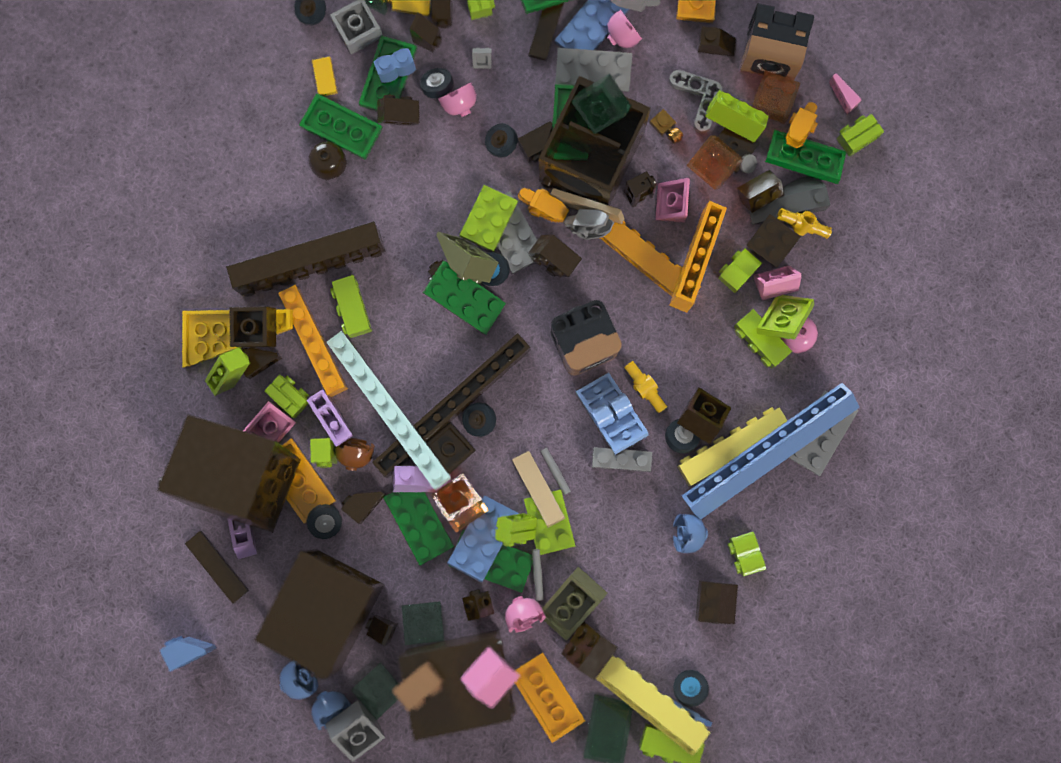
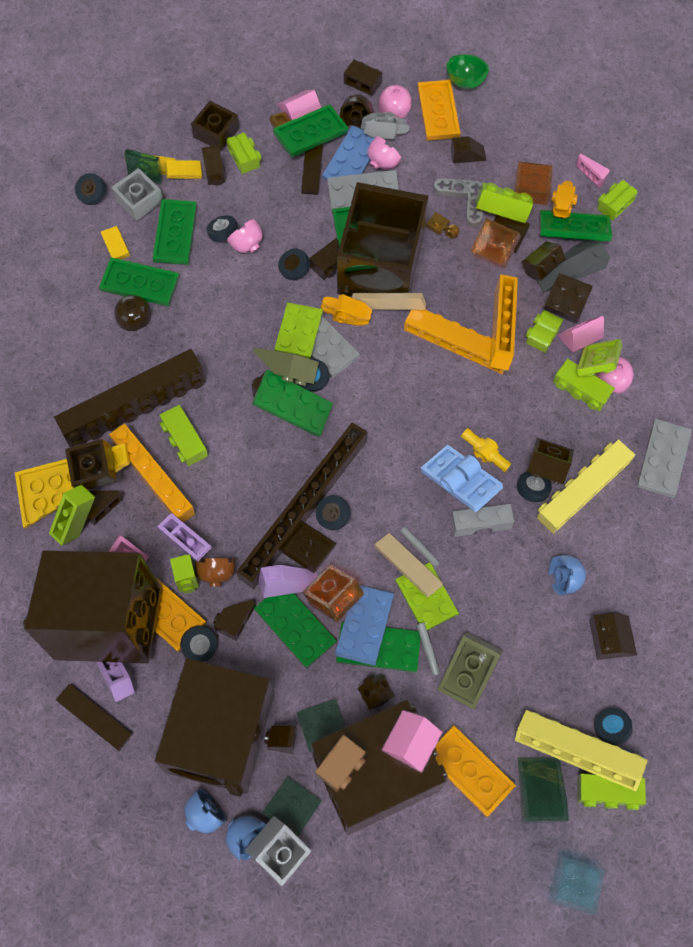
camera: 20 degrees left, 15 degrees down
(183, 651) = (77, 809): medium blue slope -> none
(287, 395) = (136, 531): lime brick -> none
(389, 410) = (243, 520): light aqua plate -> none
(395, 65) = (180, 218): medium blue brick -> none
(398, 111) = (192, 256): dark brown brick -> none
(425, 33) = (202, 188): dark brown slope -> none
(482, 58) = (259, 201): light grey tile -> none
(515, 529) = (396, 605): lime brick -> none
(523, 614) = (425, 689): bright pink cylinder -> none
(555, 256) = (370, 348): dark brown brick -> none
(585, 337) = (418, 412): black piece -> none
(589, 224) = (395, 314): light grey hinge -> none
(589, 650) = (501, 708): dark brown brick -> none
(601, 103) = (384, 197): clear green brick -> none
(639, 188) = (433, 277): dark brown hinge -> none
(672, 200) = (466, 284): bright pink slope -> none
(747, 554) = (629, 583): lime brick -> none
(748, 164) = (525, 242): light grey piece -> none
(771, 451) = (622, 480): medium blue brick -> none
(776, 41) = (521, 135): piece -> none
(804, 223) = (593, 277): yellow pin -> none

